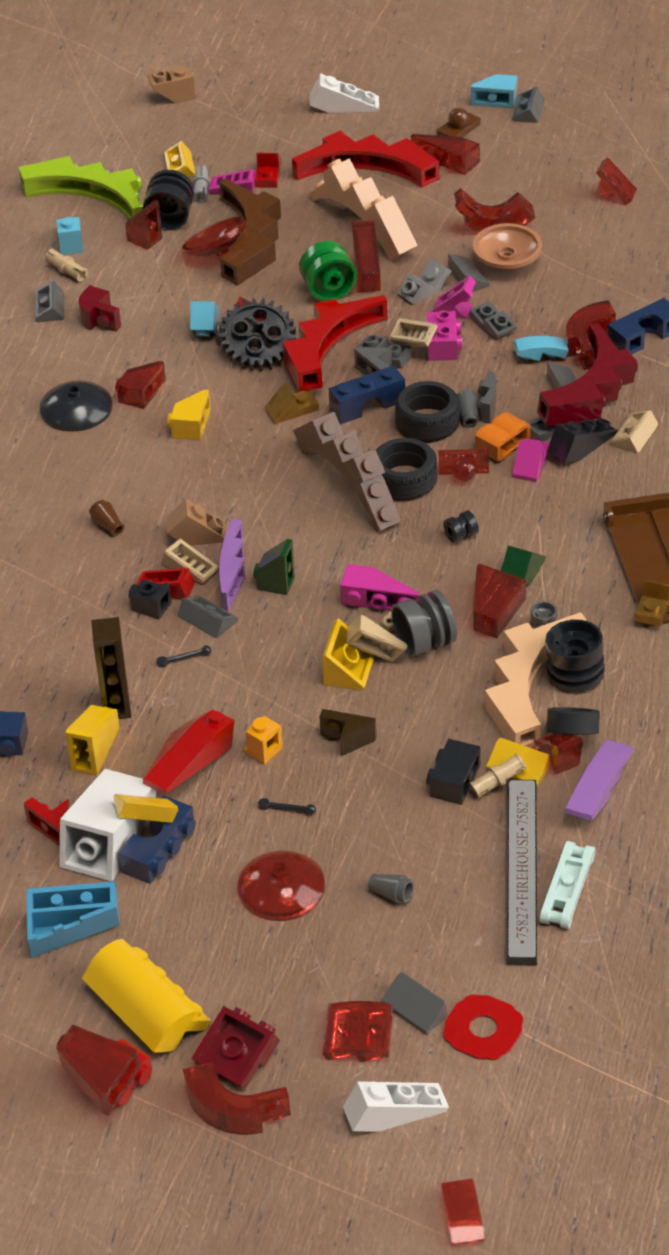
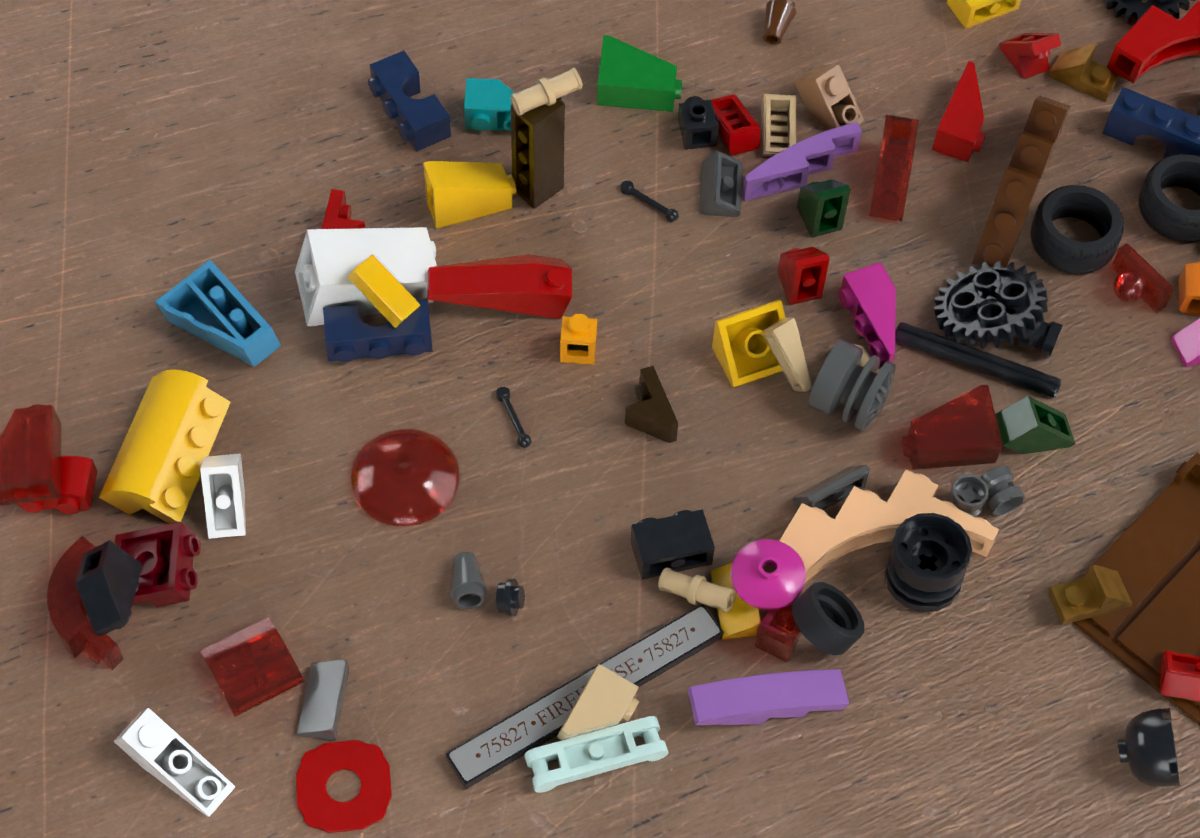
camera: 50 degrees right, 15 degrees up
(33, 691) = (487, 105): none -> teal slope
(74, 609) = (635, 78): none -> green slope
(106, 616) = (546, 91): none -> tan pin
(212, 981) = (224, 495): none -> white slope
(244, 1064) = (108, 586): none -> black slope
(252, 417) = (1030, 52): none -> red slope
(271, 473) = (963, 120): none -> red slope
(278, 522) = (893, 167): none -> clear red slope
(317, 605) = (803, 274): none -> red slope
(422, 870) = (510, 597): none -> black plate
(423, 533) = (991, 304): none -> black gear
(455, 563) = (978, 359): none -> black axle
(479, 678) = (833, 488): none -> dark grey slope
(521, 730) = (765, 589): none -> dark pink dish
(539, 857) = (601, 704): none -> tan slope
(557, 598) = (1001, 490): none -> dark grey wheel

